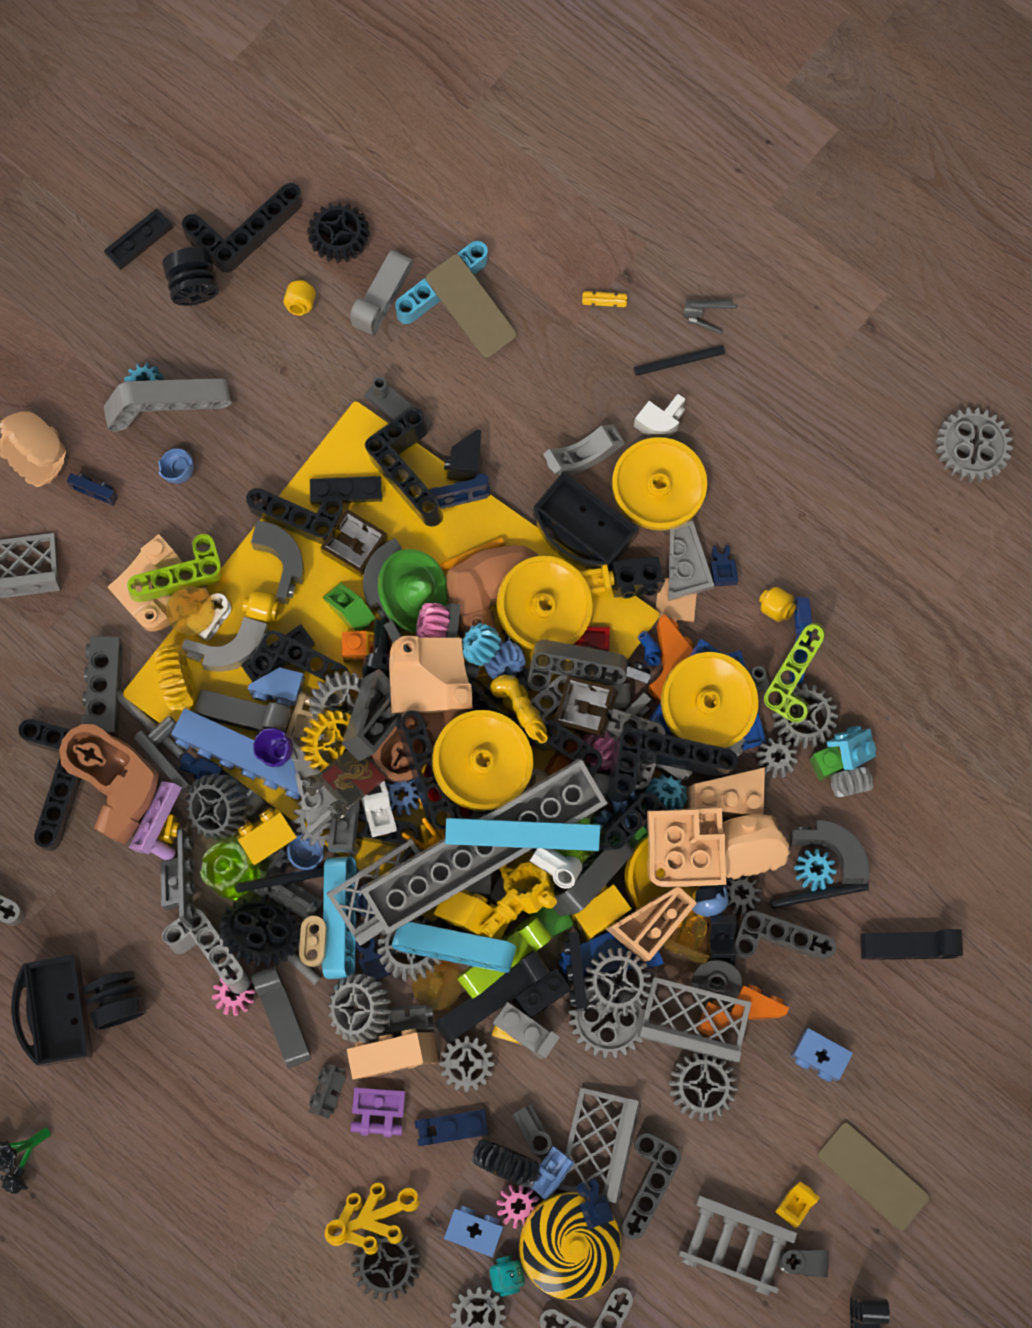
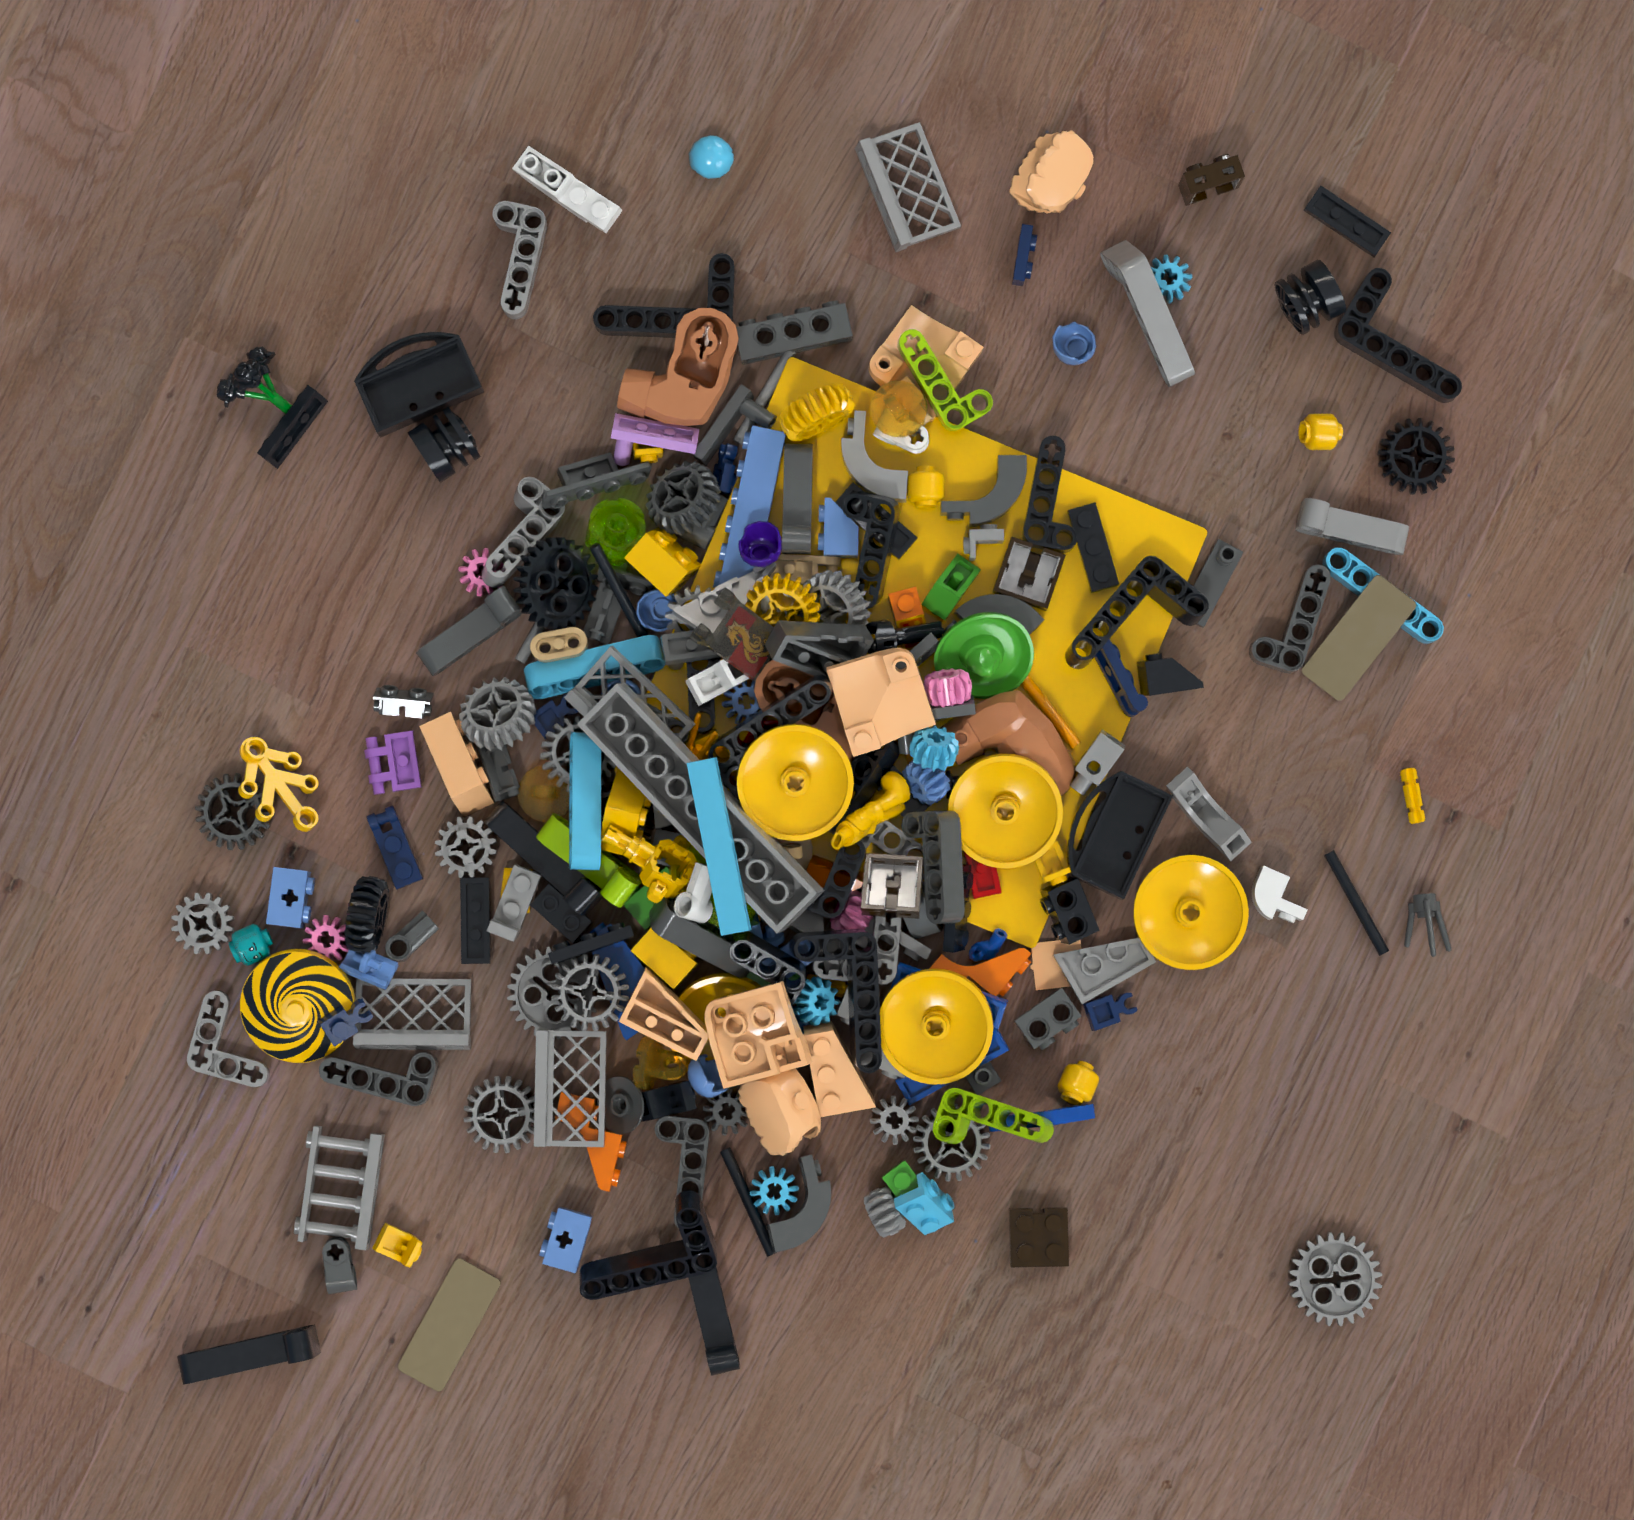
camera: 80 degrees right, 10 degrees up
(61, 1132) = (292, 426): none -> black plate
(71, 315) = (1221, 171): none -> dark brown piece
(313, 569) = (985, 535): none -> light grey bracket
(442, 348) = (1297, 617): none -> dark grey beam
(517, 515) = (1105, 751): none -> light grey torso
(531, 1071) = (475, 920): none -> black plate
(714, 617) = (1044, 1012): none -> dark grey brick
(858, 981) = (660, 1263): none -> black beam
(897, 665) = (1038, 1238): none -> dark brown piece

